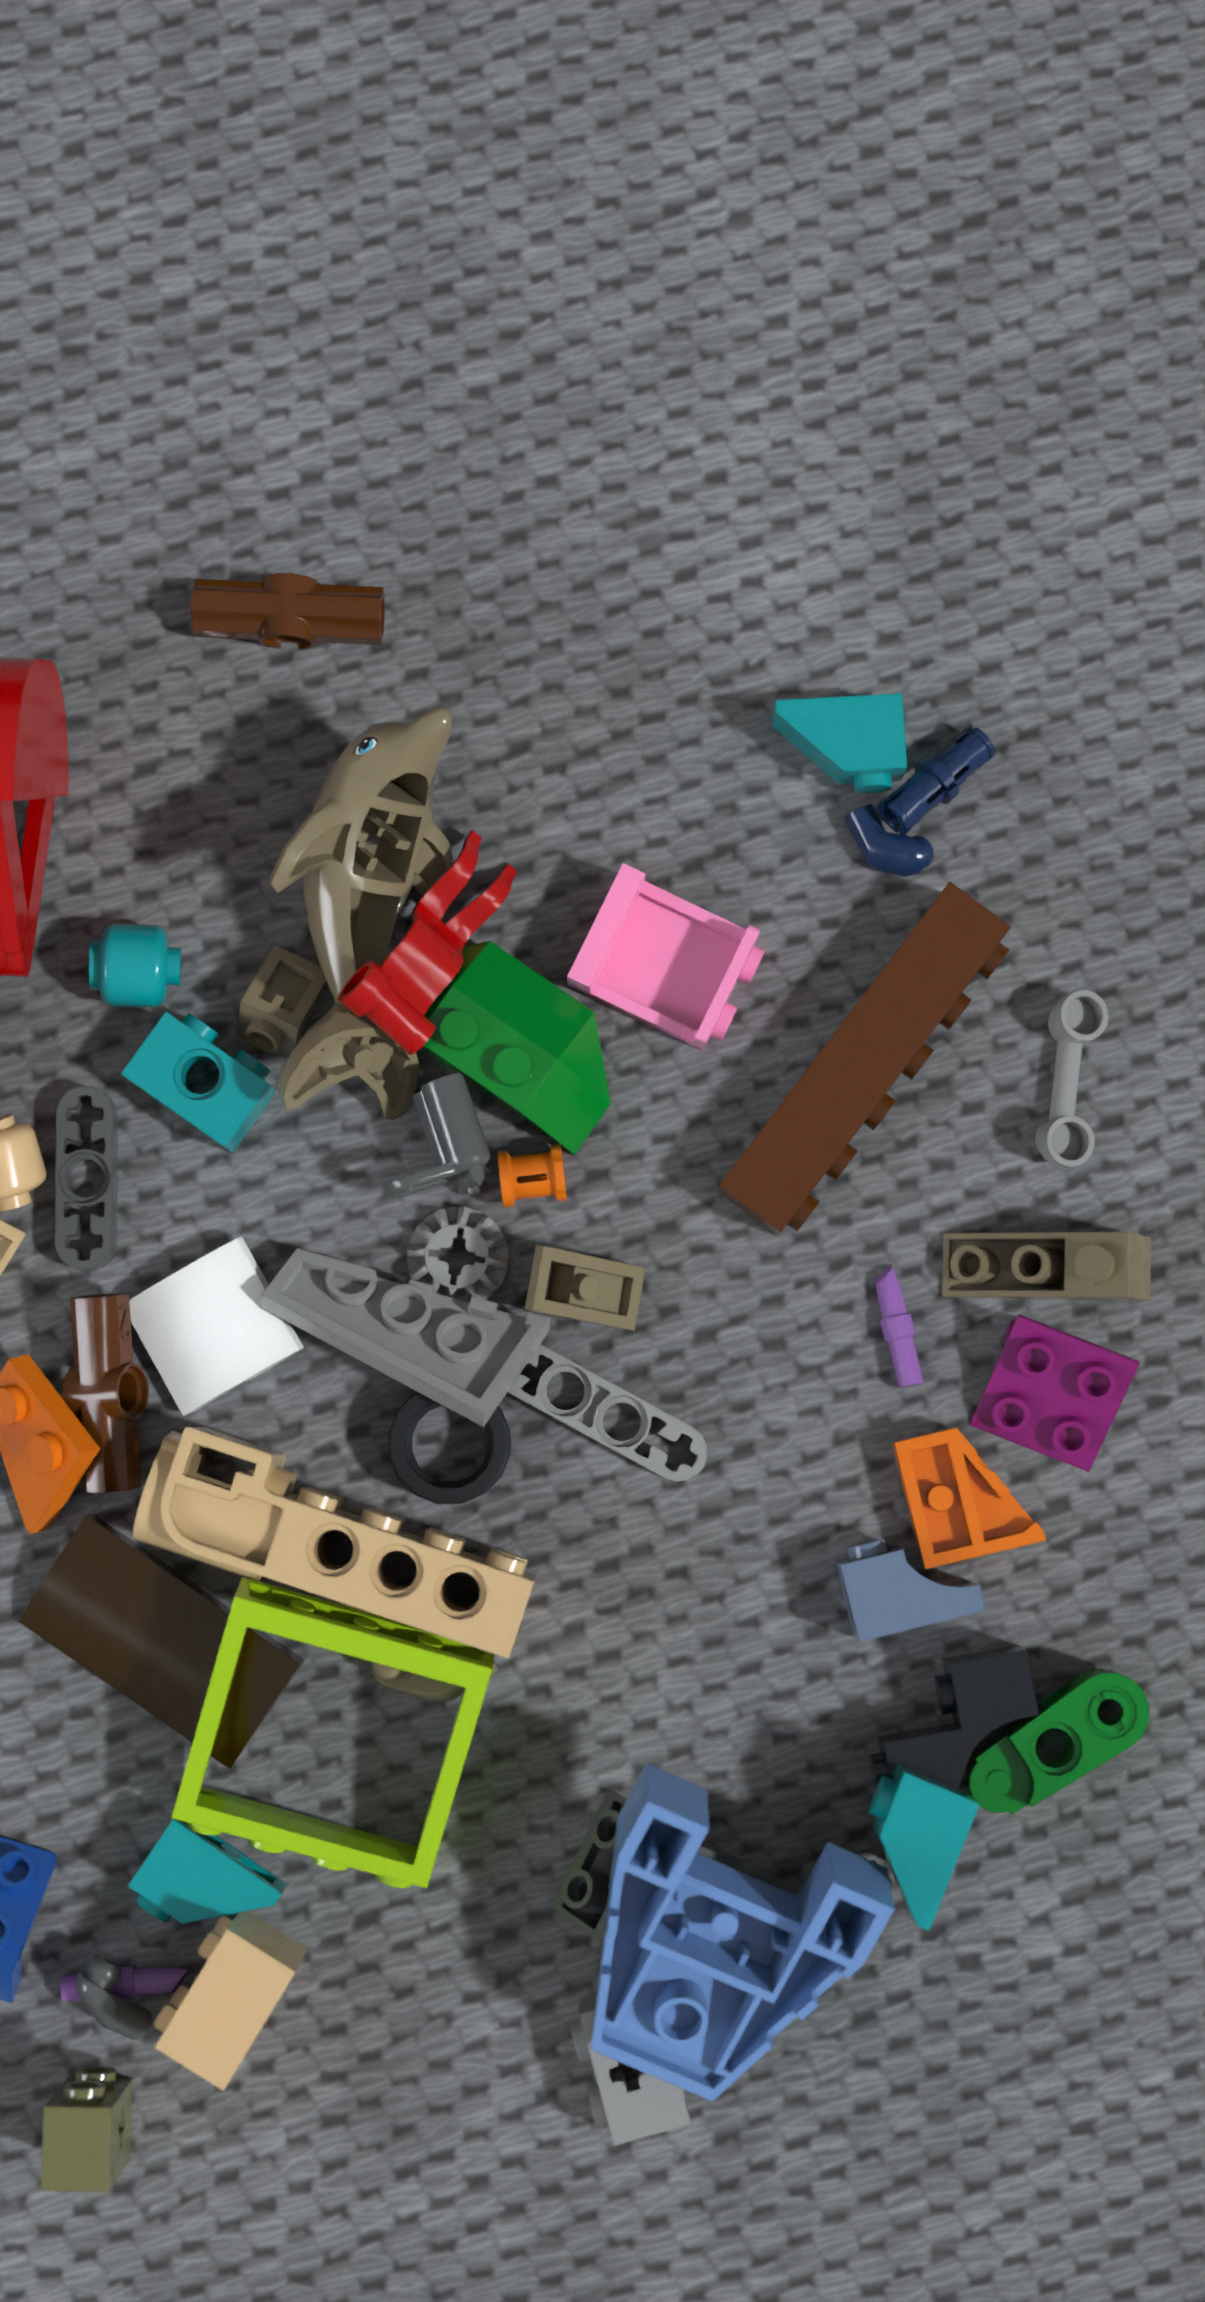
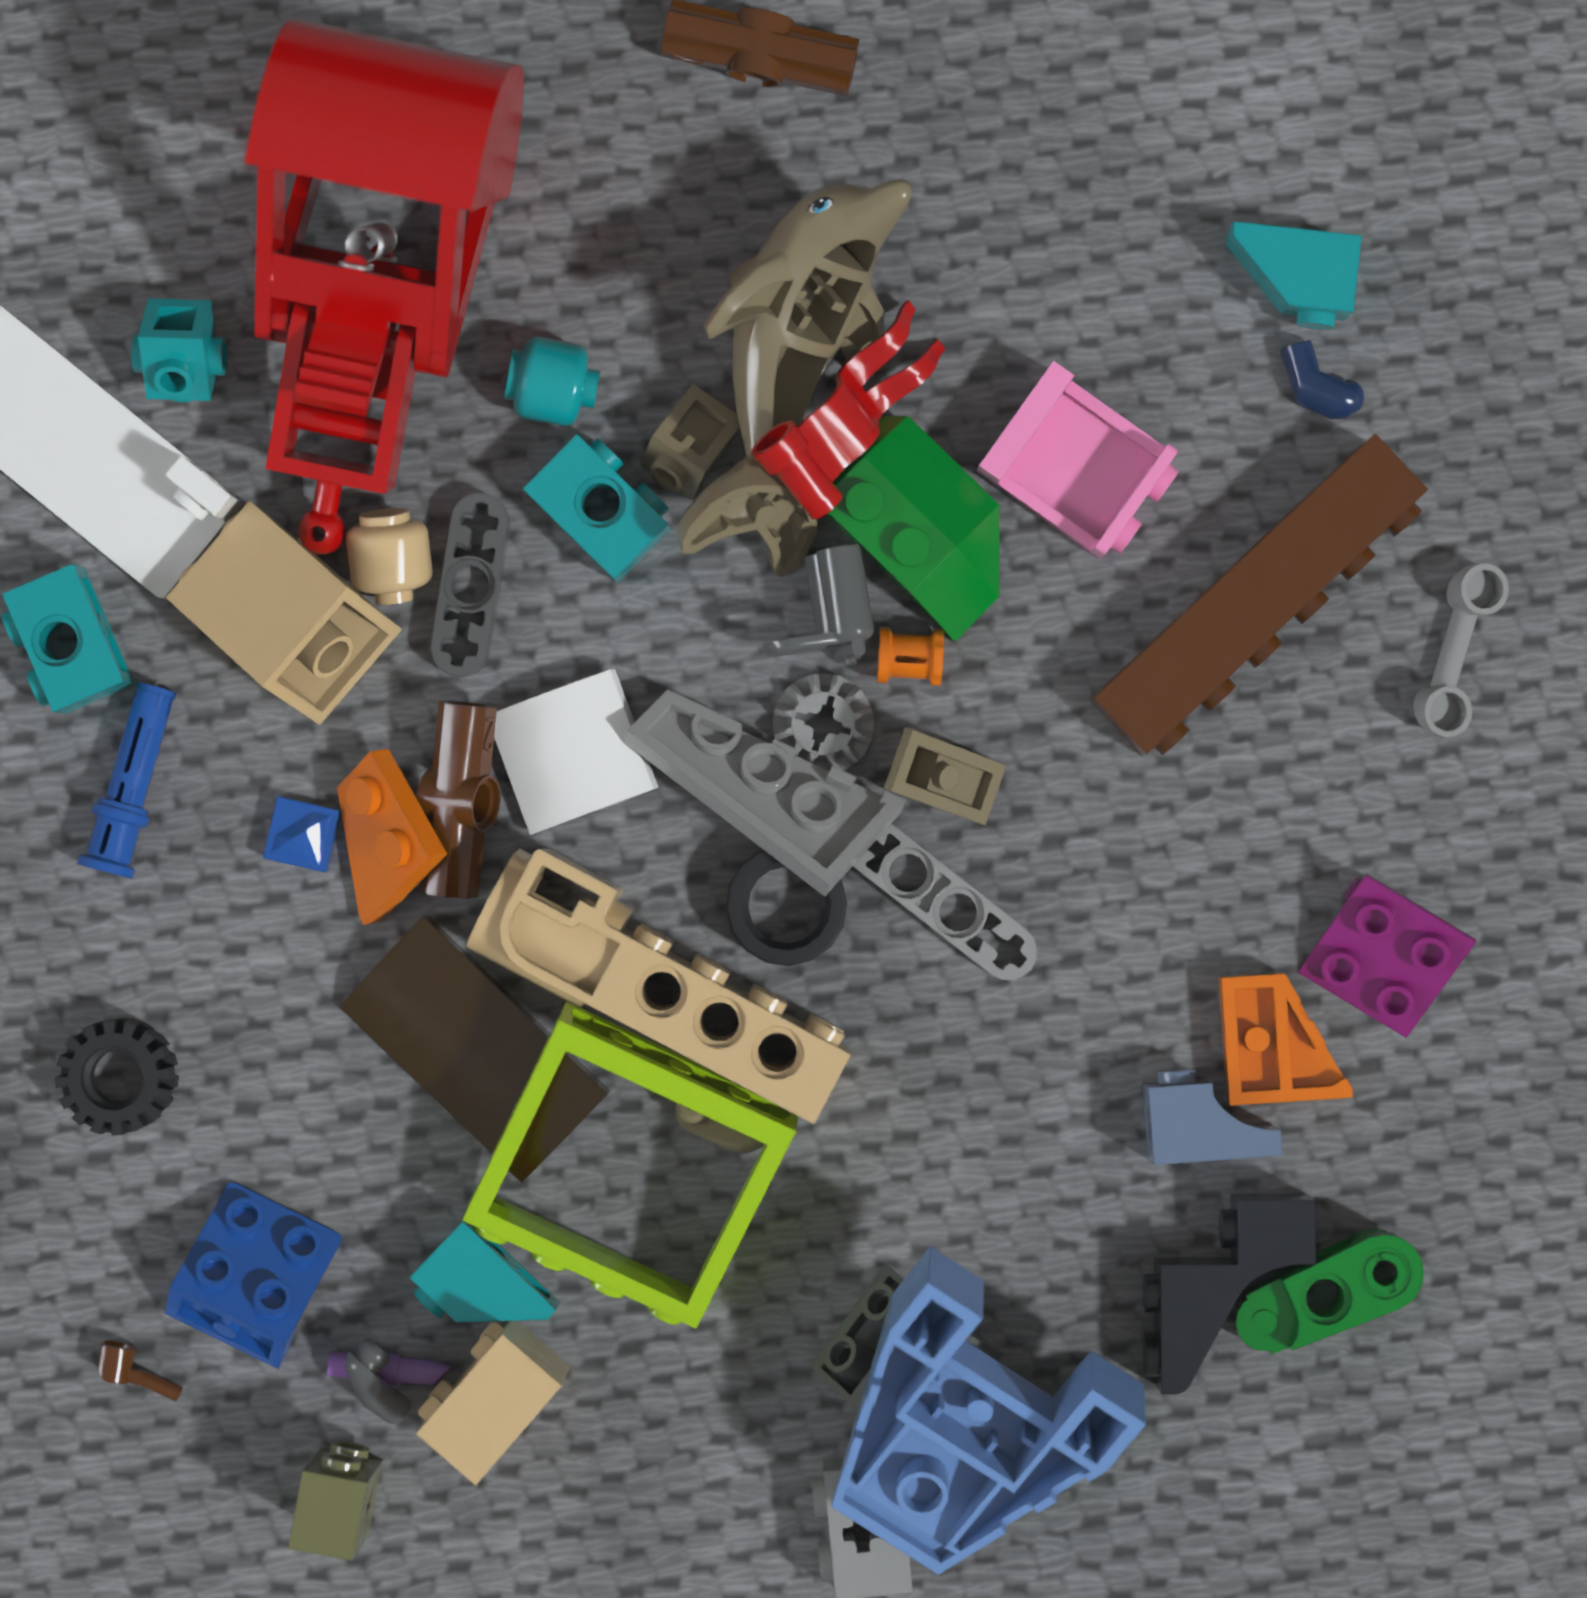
camera: 10 degrees right, 5 degrees up
(898, 1329) = (1244, 867): medium lavender piece -> none
(922, 1836) = (1181, 1360): teal slope -> none
(936, 780) = (1380, 327): dark blue pin -> none
(1047, 1266) = (1402, 830): dark tan slope -> none

